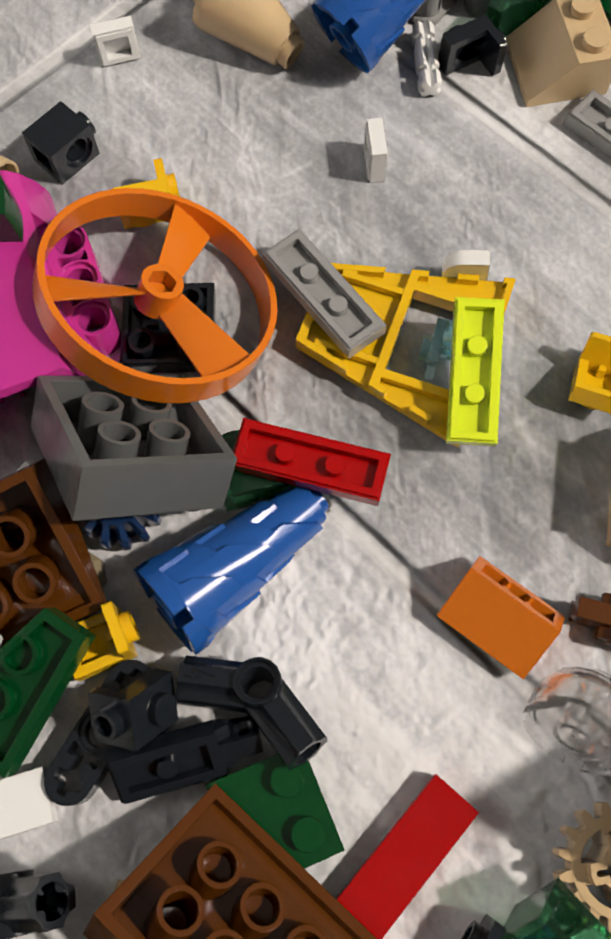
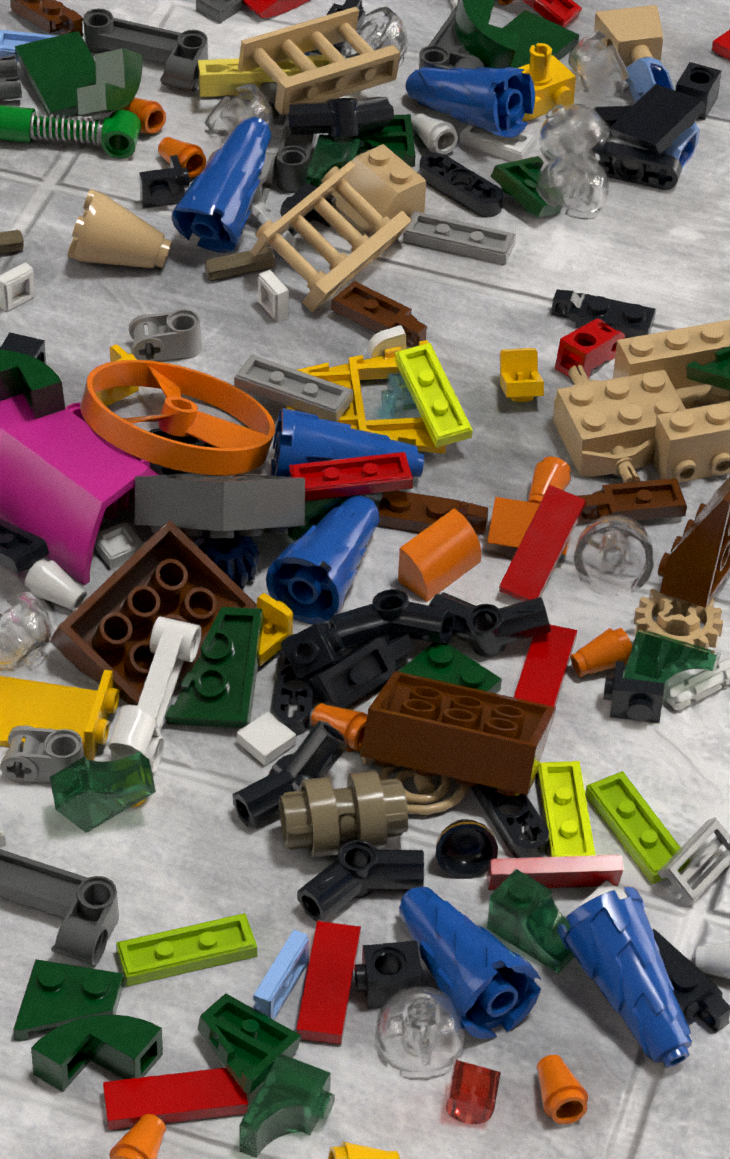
camera: 30 degrees left, 25 degrees down
(18, 434) = (117, 544): none -> white tile
(114, 836) = (347, 721): none -> orange cone
(234, 162) = (170, 335): none -> light grey piece
(308, 397) = (308, 439): none -> blue cone
(367, 91) = (239, 263): none -> dark tan axle
(367, 614) = (439, 555): none -> orange brick
(396, 537) = (418, 511): none -> reddish brown hinge
(396, 775) = (492, 627): none -> black piece
(481, 217) = (377, 312): none -> reddish brown hinge
(493, 870) = (602, 652): none -> orange cone
(497, 665) = (542, 544): none -> red tile
(508, 120) = (342, 267): none -> tan fence
(555, 554) = (549, 471): none -> orange cone

